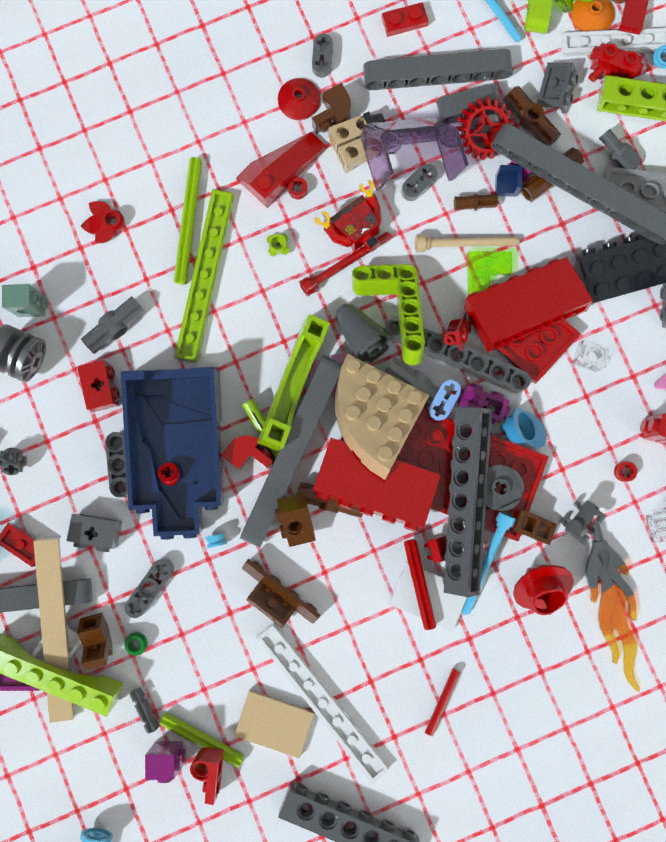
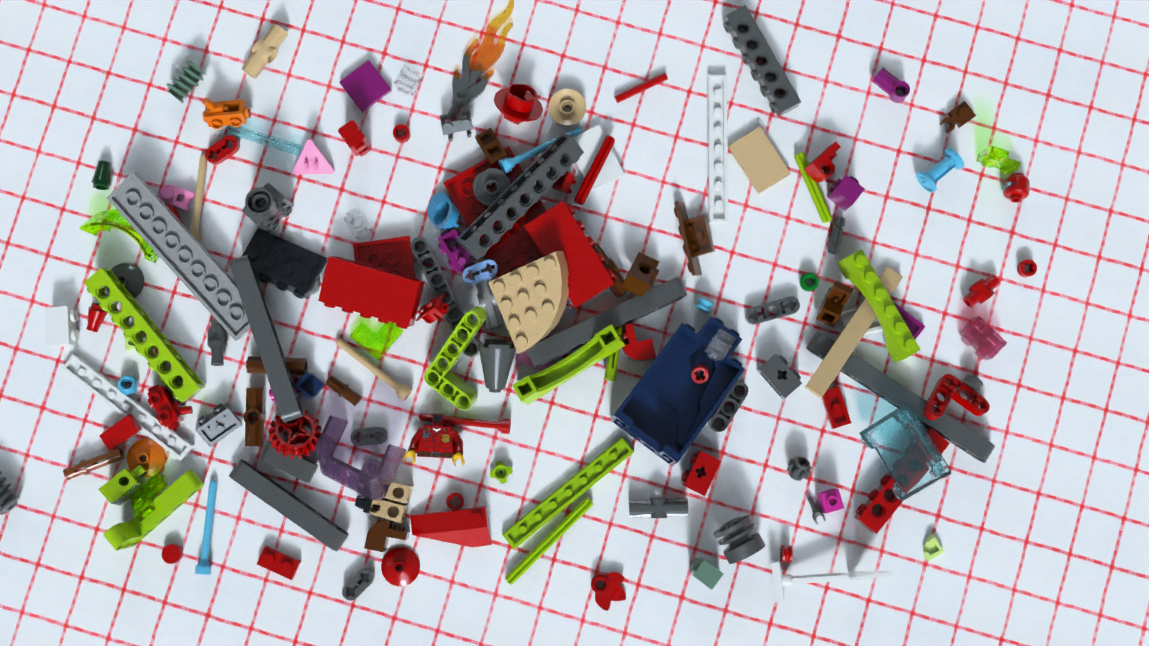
camera: 140 degrees left, 0 degrees up
(170, 513) = (719, 345): none -> clear brick
(506, 628) = (568, 98): none -> tan dish

